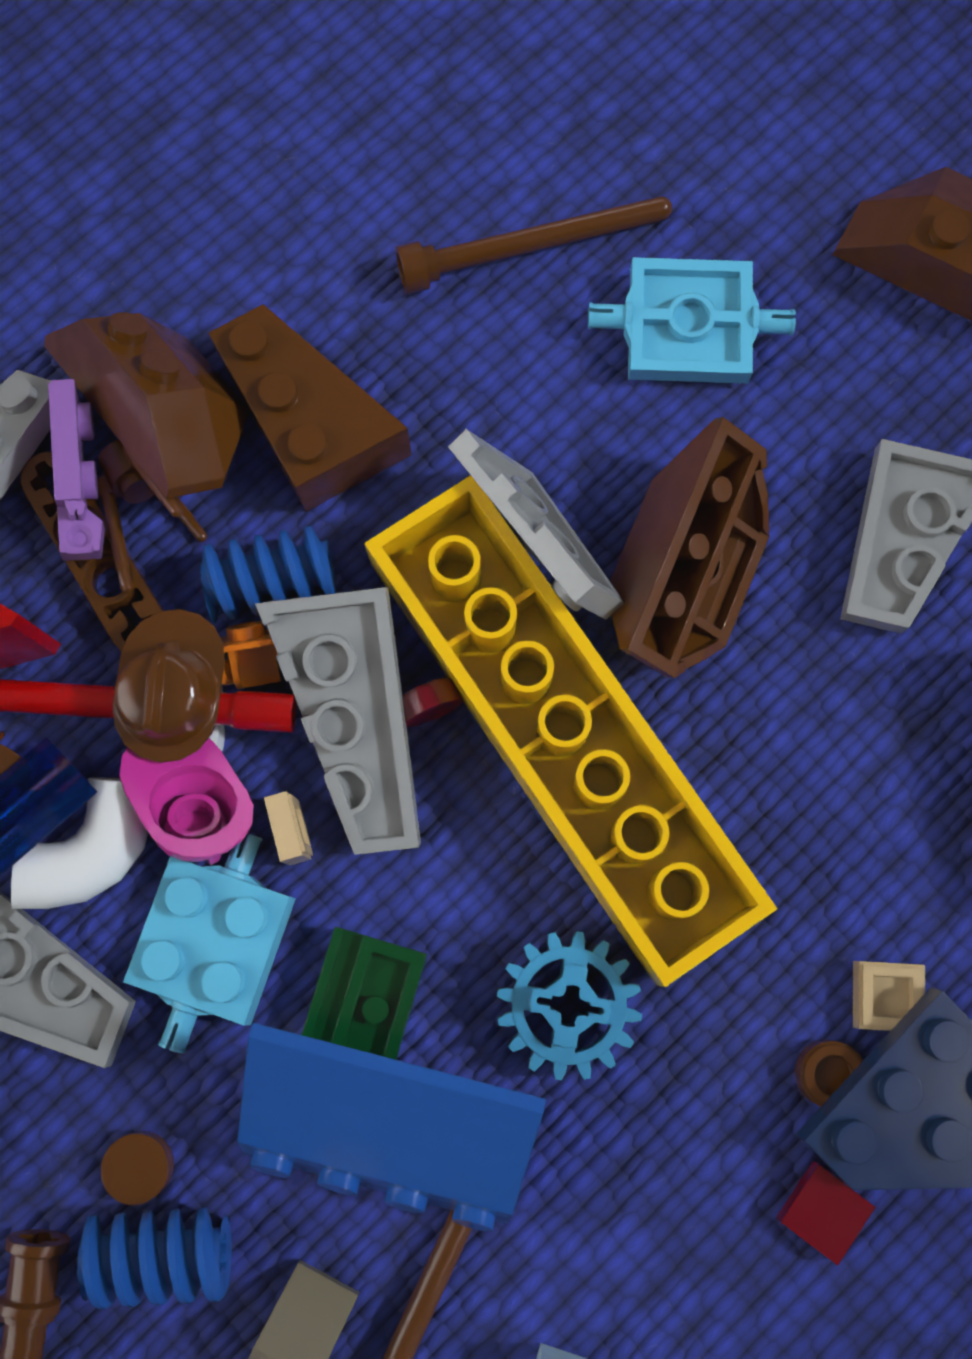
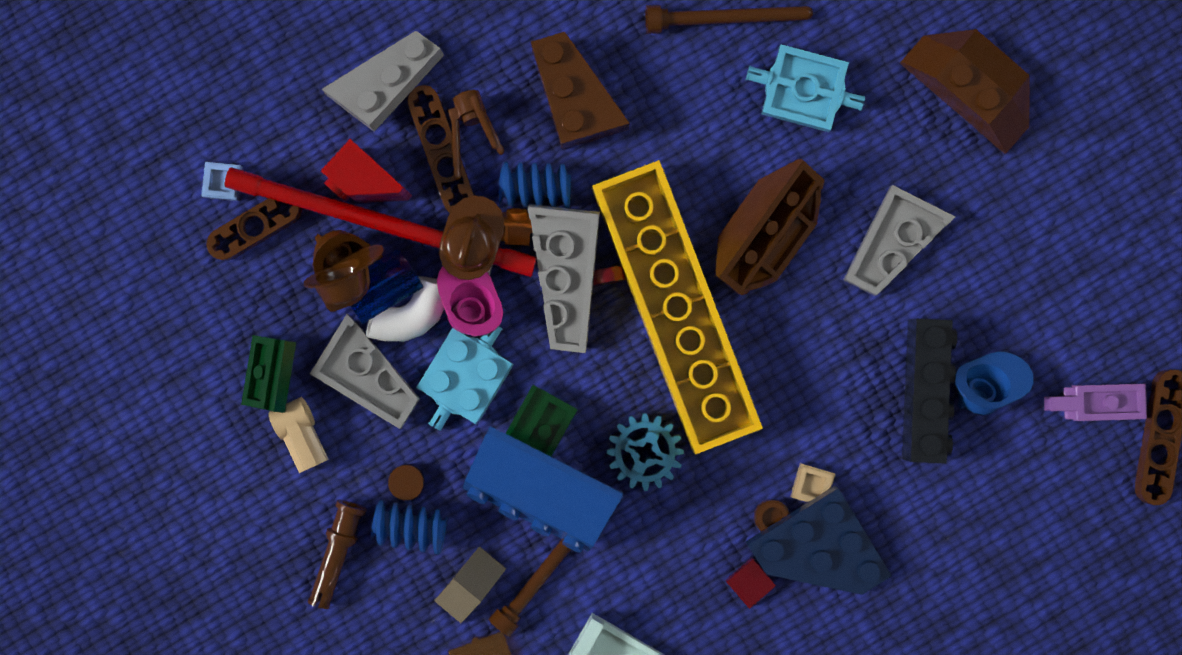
camera: 10 degrees right, 10 degrees up
(73, 477) = (440, 109): medium lavender hinge -> none
(155, 398) = (493, 70): reddish brown wedge -> none
(288, 828) = (518, 327): tan tile -> none
(539, 524) = (690, 195): light grey wing -> none

